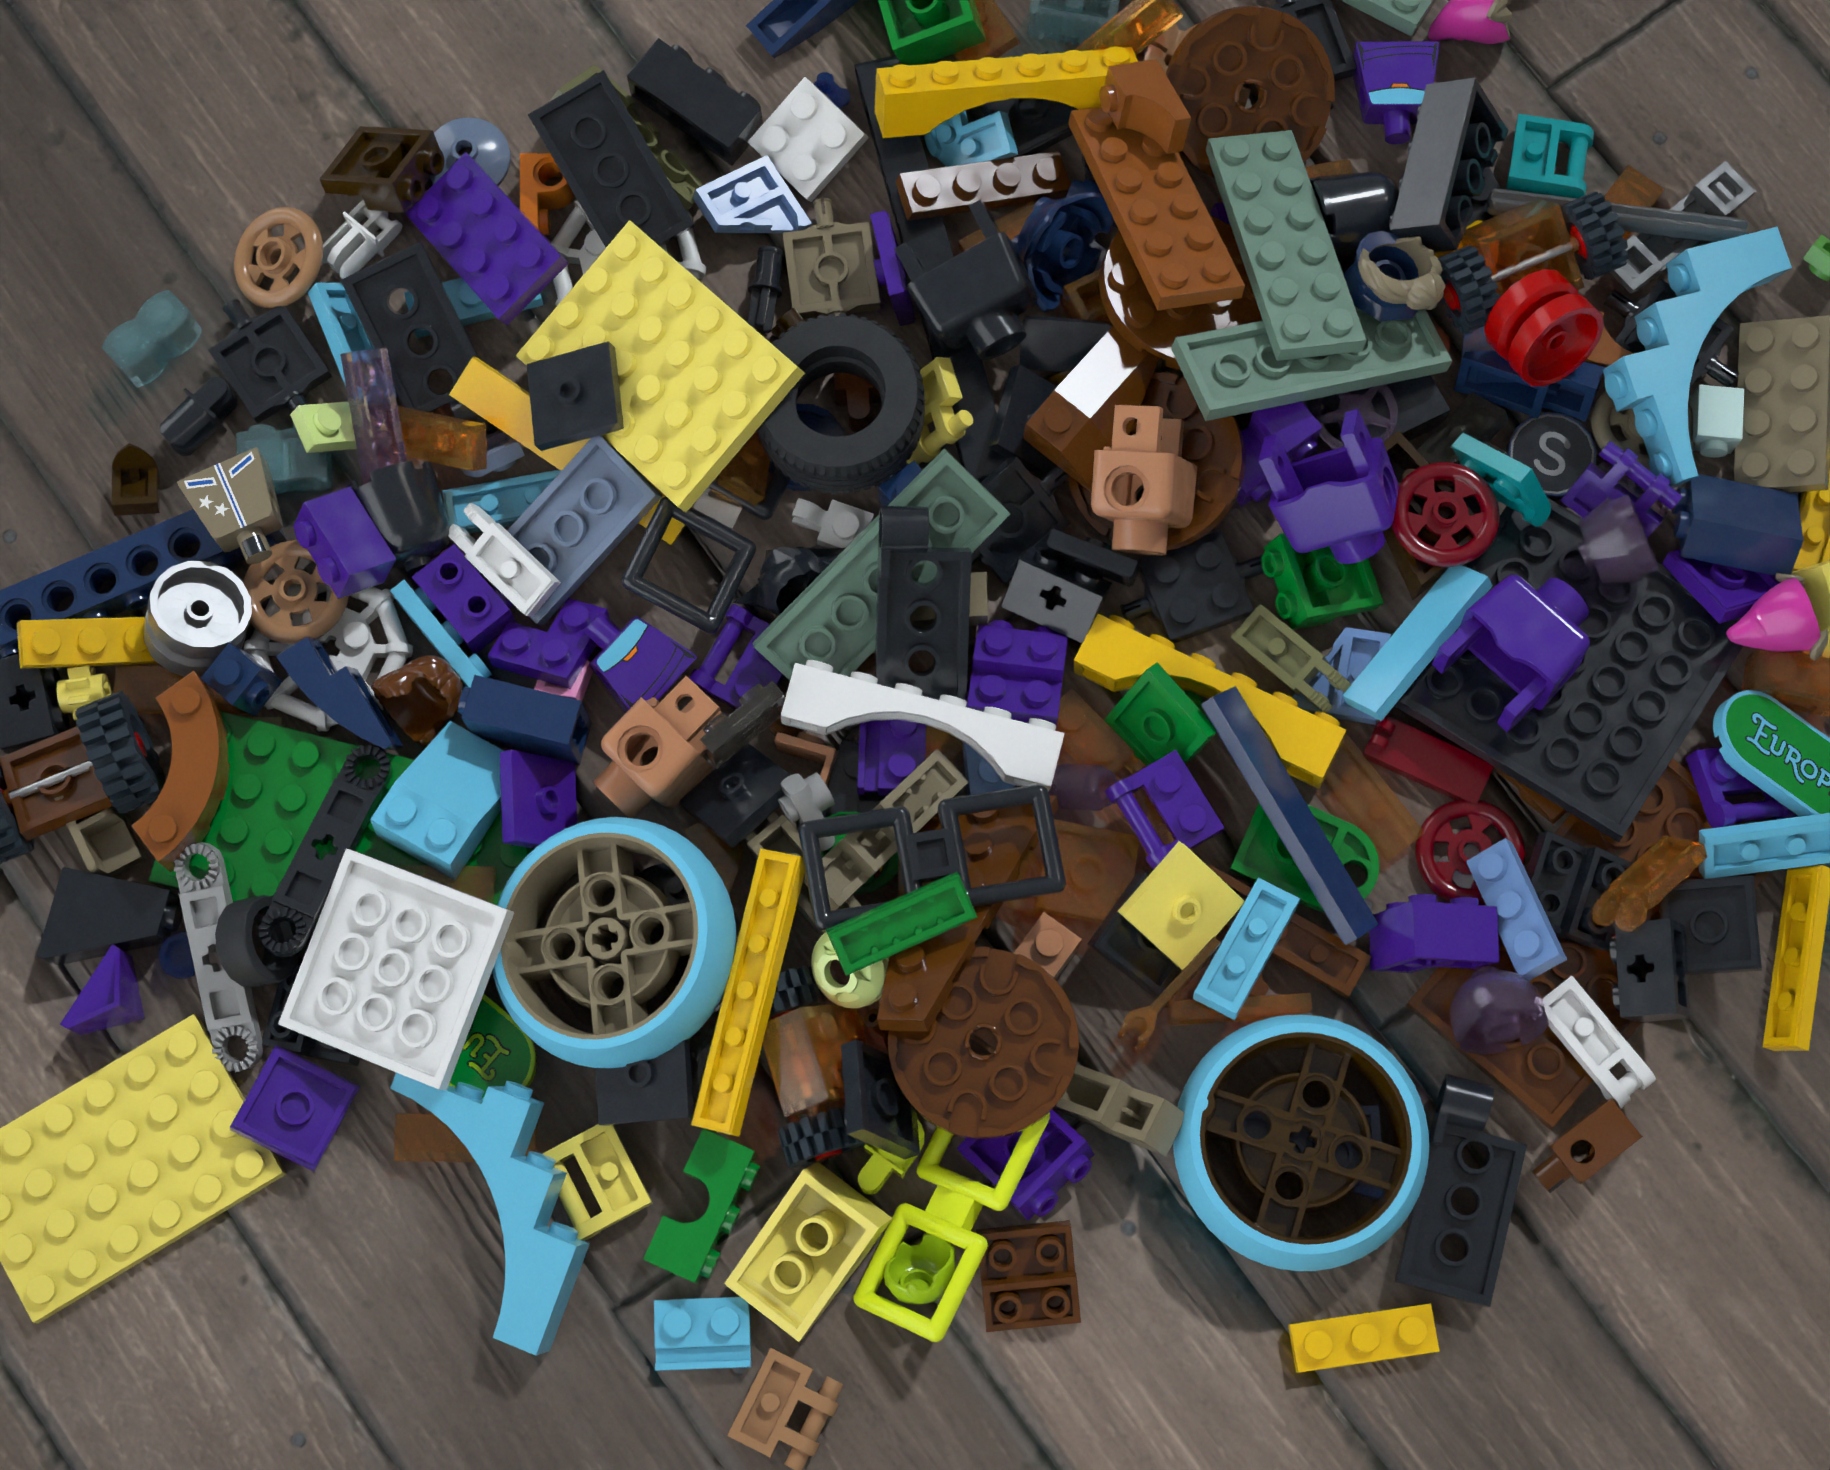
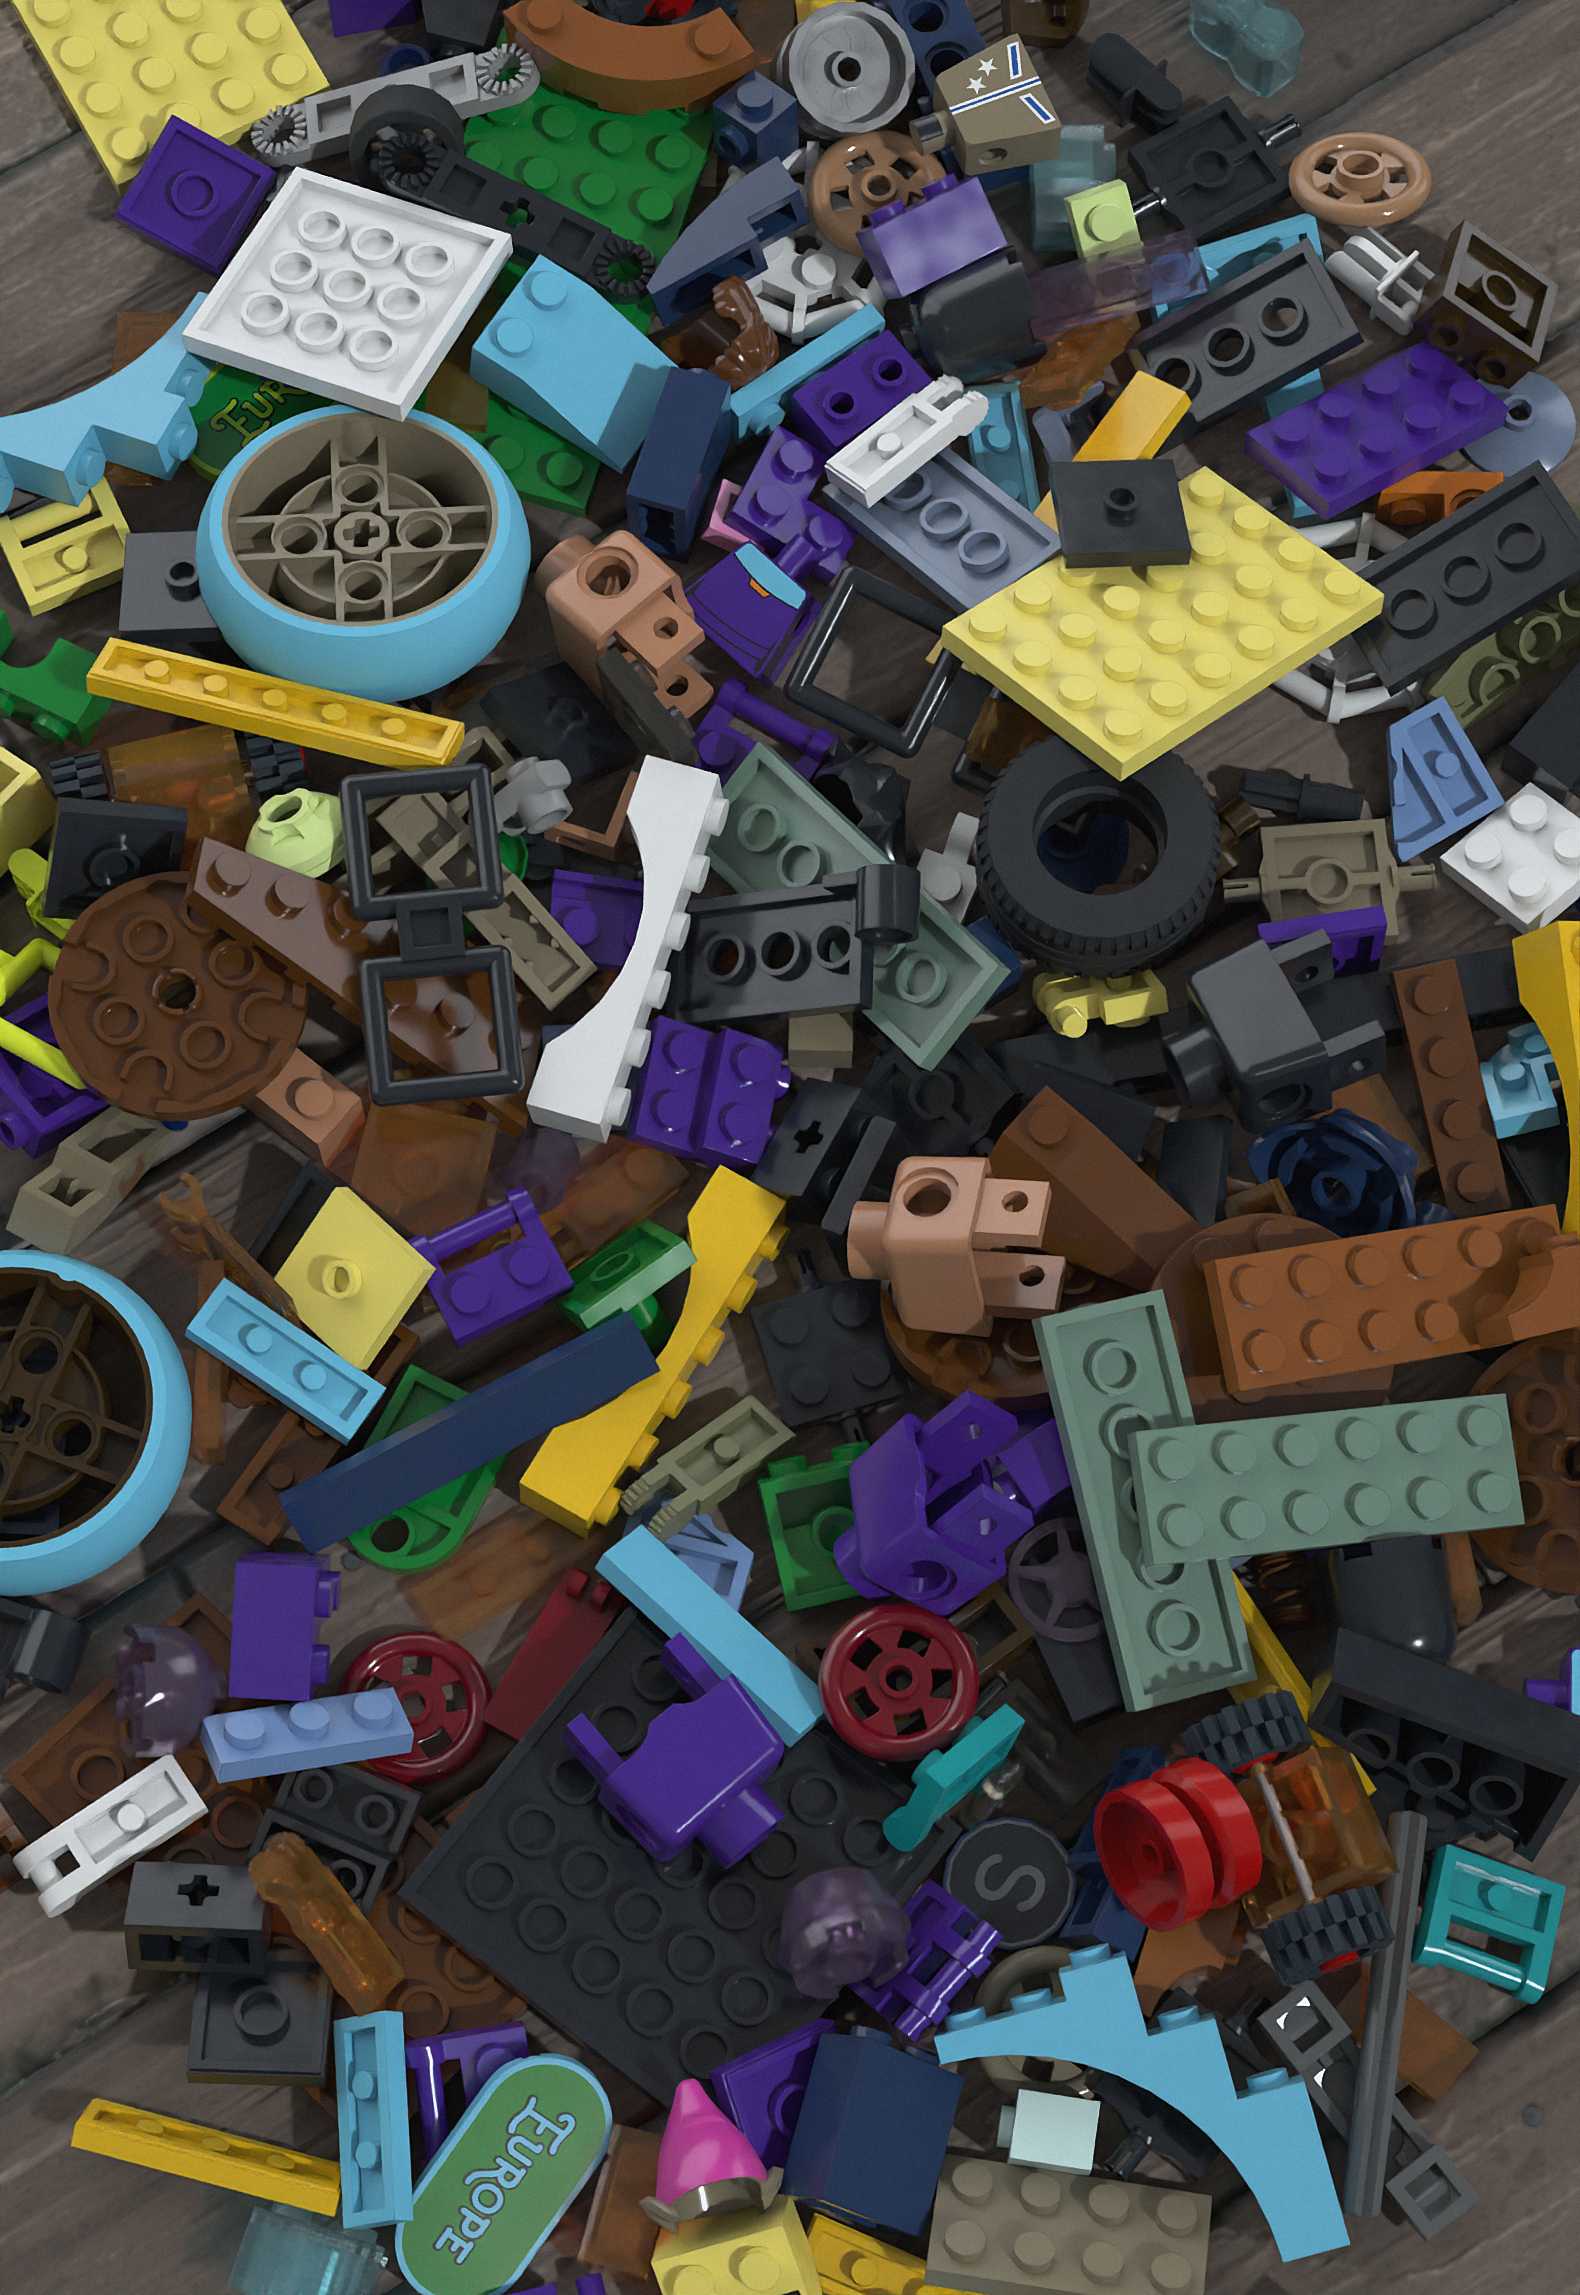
camera: 90 degrees right, 5 degrees down
(535, 797) = (569, 475): dark purple plate -> none
(901, 923) = (333, 877): green plate -> none
(1394, 277) = (1266, 1628): piece -> none

